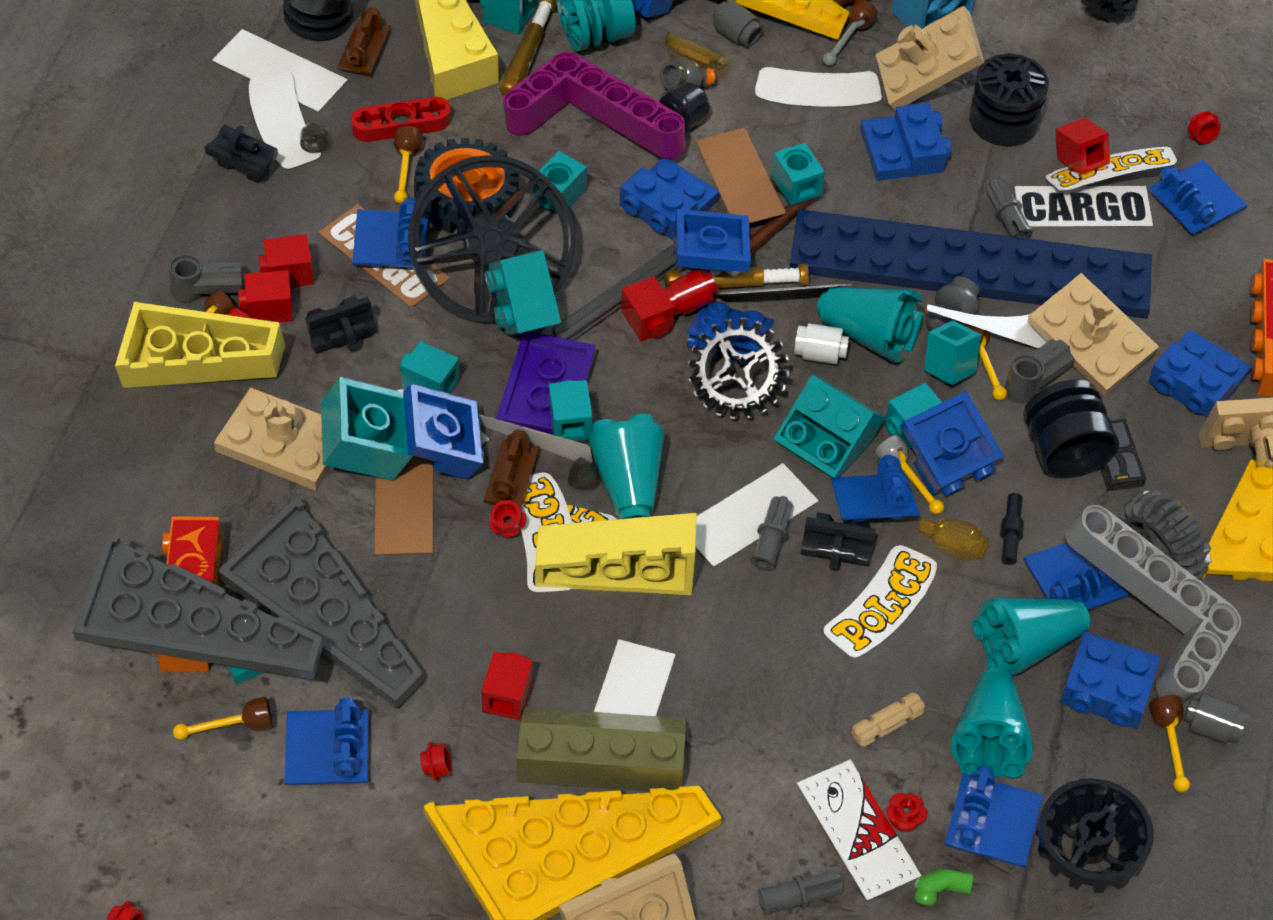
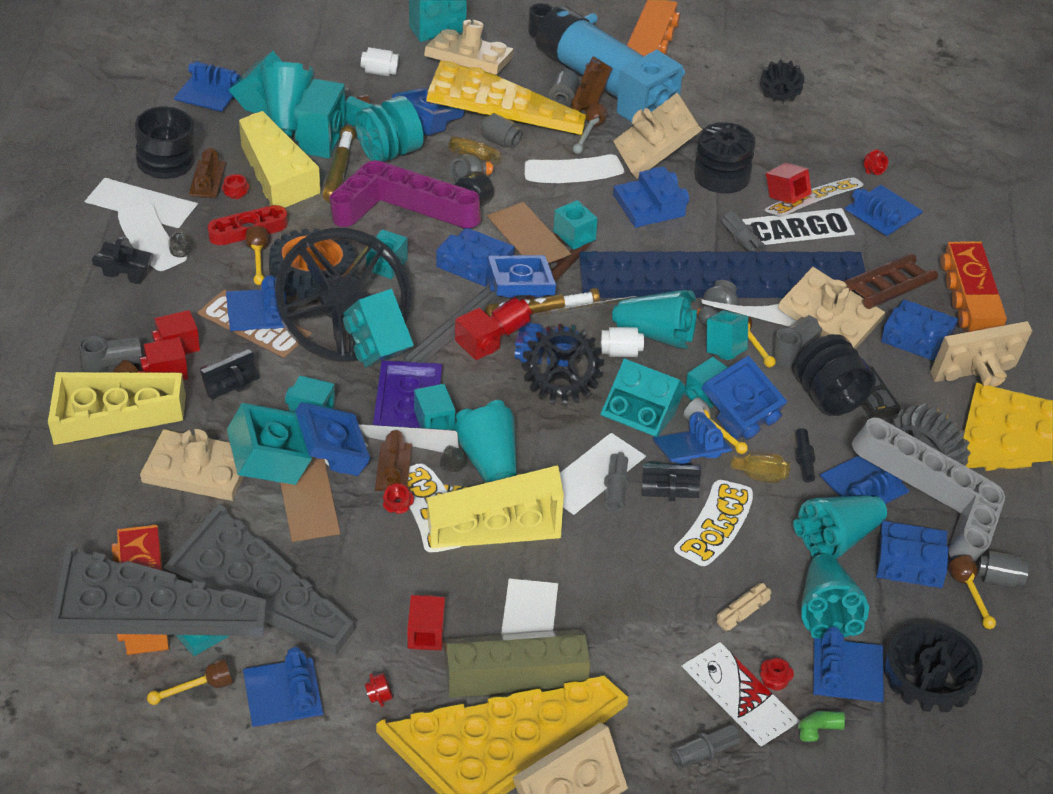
camera: 10 degrees left, 10 degrees down
(395, 62) = (235, 186): none -> red plate
(1171, 318) = (889, 291): none -> copper bar

